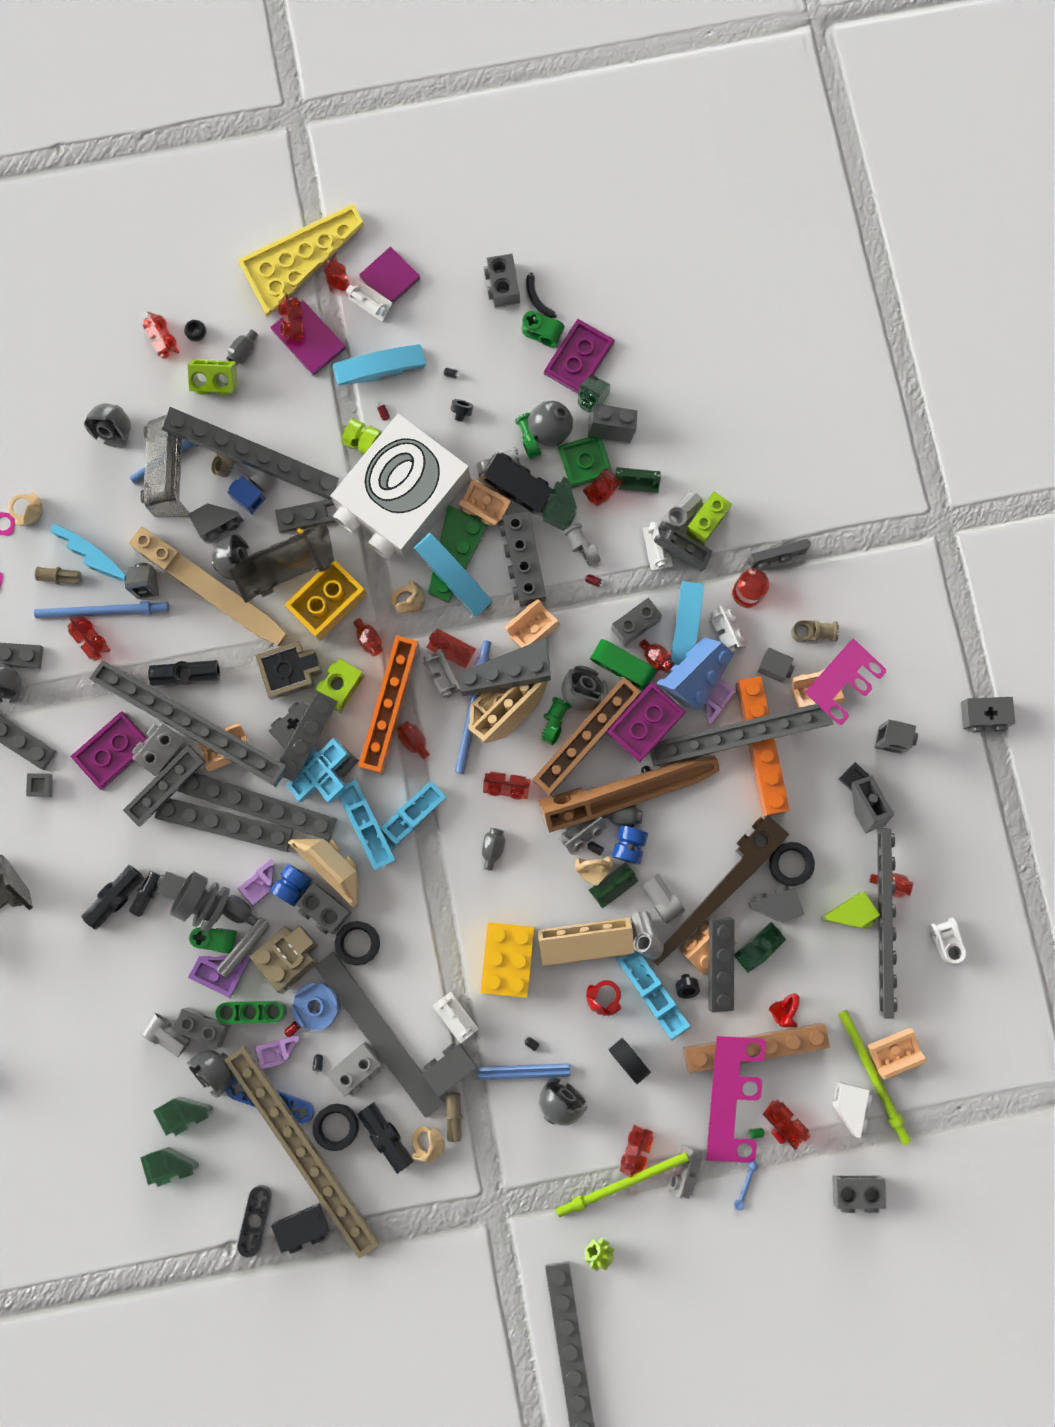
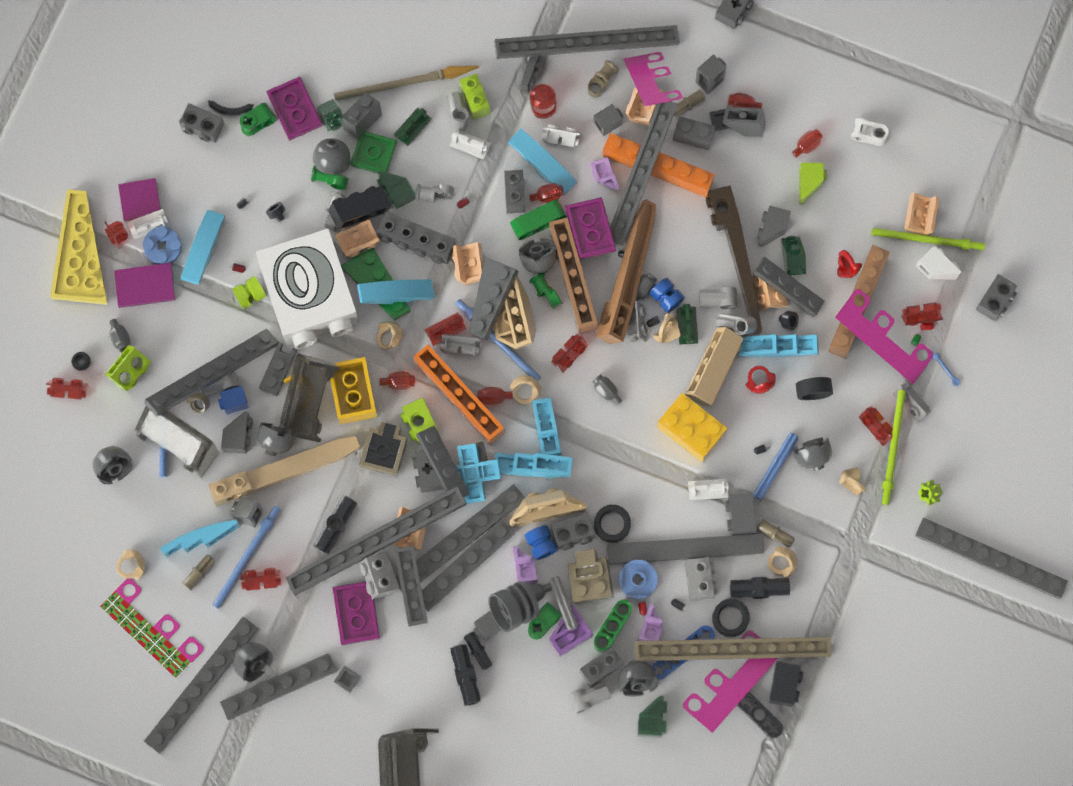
camera: 60 degrees left, 5 degrees down
(166, 1163) = (680, 751): clear green slope -> none
(256, 1176) = (730, 691): none -> dark pink piece
(289, 310) = (117, 284): clear red hinge -> none
(350, 316) = (162, 256): none -> medium blue plate
(448, 762) = (536, 389): none -> tan piece
(560, 1160) = (851, 480): none -> tan piece
(602, 488) = (402, 152): clear red bracket -> none
(683, 546) = (483, 125): dark grey hinge -> none
(697, 674) = (580, 173): medium blue wedge -> none
(718, 478) = (450, 73): none -> dark tan piece
(809, 864) = (756, 185): black tyre -> none
(821, 760) = (693, 133): none -> dark grey brick
(842, 590) = (586, 42): none -> dark grey plate
(851, 734) = (689, 102): none -> dark tan axle
(886, 931) = (835, 165): dark grey plate -> none
(891, 789) = (743, 100): none -> clear red plant

